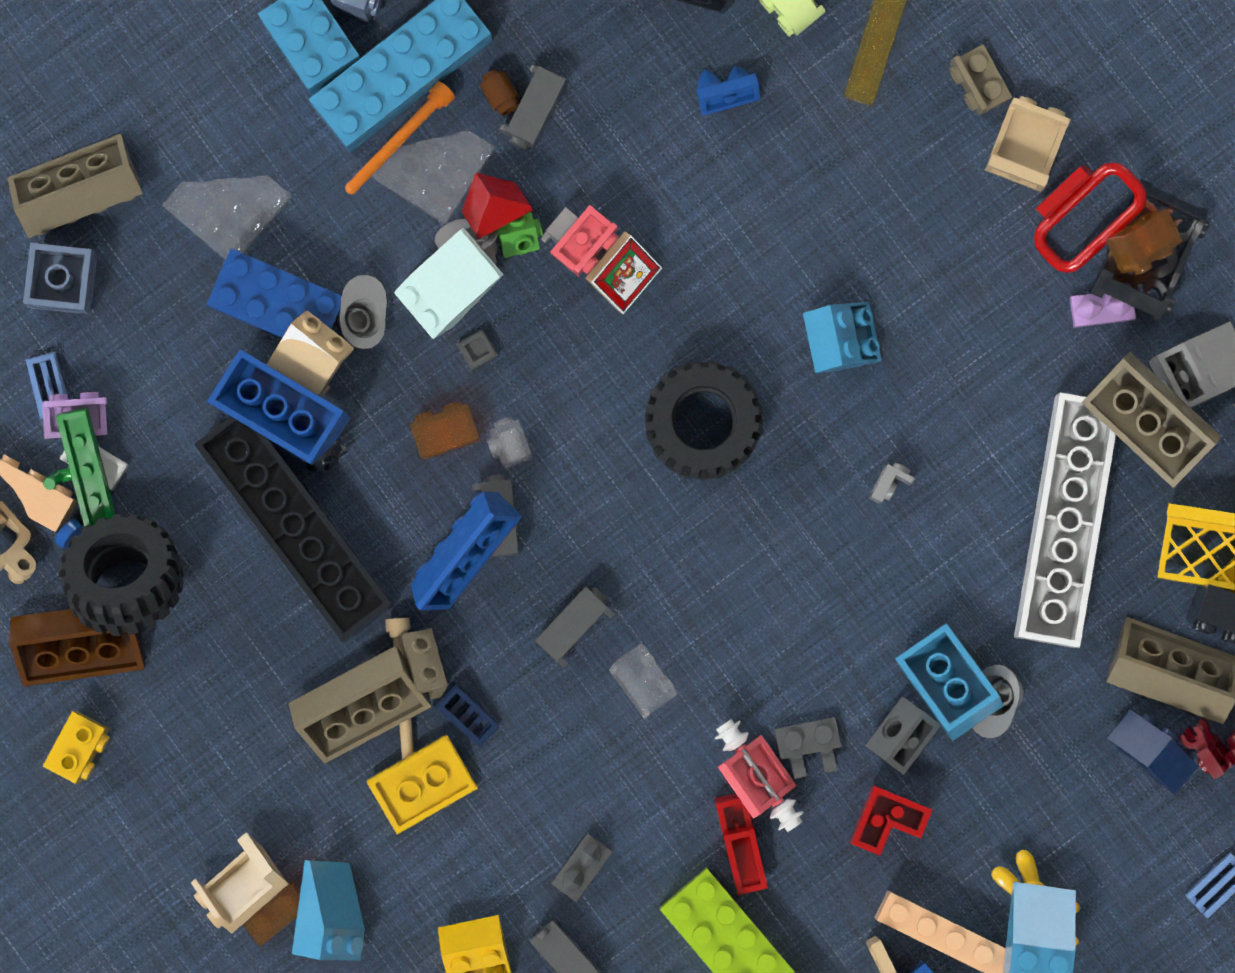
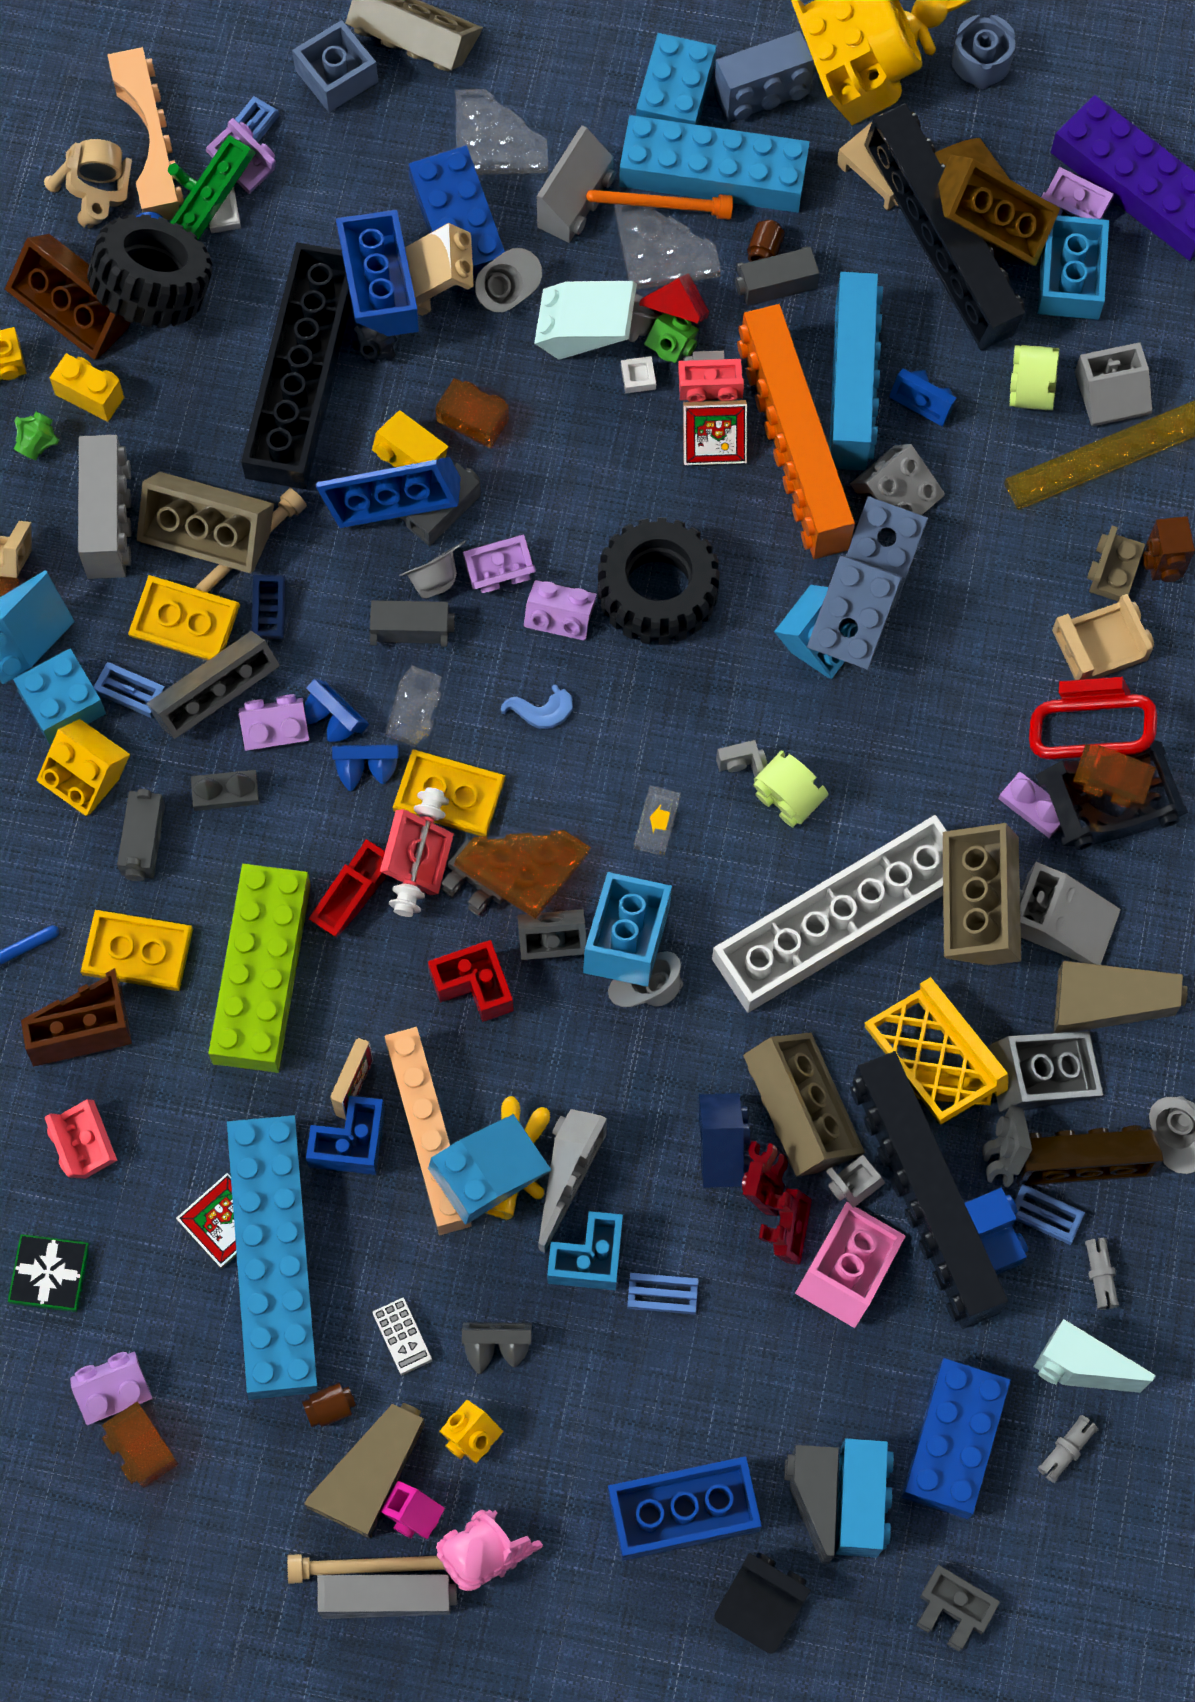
camera: 45 degrees right, 15 degrees down
(167, 697) = (87, 387): none -> yellow brick
(174, 769) = (34, 435): none -> bright green rock
(282, 770) = (103, 507): none -> light grey brick
(326, 185) = (563, 198): none -> light grey slope
(405, 927) = (59, 694): none -> dark azure brick
(425, 663) = (279, 535): dark tan bracket -> none
(433, 504) = (406, 442): none -> yellow brick
(464, 859) = (130, 677): none -> medium blue tile
(477, 350) = (557, 388): dark grey tile -> none
(497, 810) = (213, 684): none -> dark grey brick
(509, 443) = (506, 459): clear brick -> none
(522, 282) = (638, 374): none -> white plate
(549, 571) = (436, 575): none -> light grey piece
(561, 789) = (273, 722): none -> lavender bracket
(579, 736) = (324, 700): none -> blue tile
(584, 520) = (499, 563): none -> lavender bracket
(639, 755) = (351, 760): none -> blue tile
(657, 506) = (559, 609): none -> lavender bracket
(667, 127) = (855, 370): none -> dark azure brick
(676, 214) = (795, 432): none -> orange brick
(730, 586) = (544, 717): none -> medium blue piece
(734, 696) = (470, 791): none -> yellow tile
(779, 176) = (900, 480): none -> light grey bracket
(835, 710) = (523, 866): none -> clear orange plate
(846, 276) = (867, 583): none -> sand blue bracket
(878, 582) = (657, 820): none -> clear tile
(945, 472) = (790, 788): none -> yellowish green brick
(1009, 36) = (1169, 549): none -> reddish brown brick
(1071, 860) = (573, 1152): none -> light grey wedge
(1162, 914) = (589, 1264): none -> dark azure brick

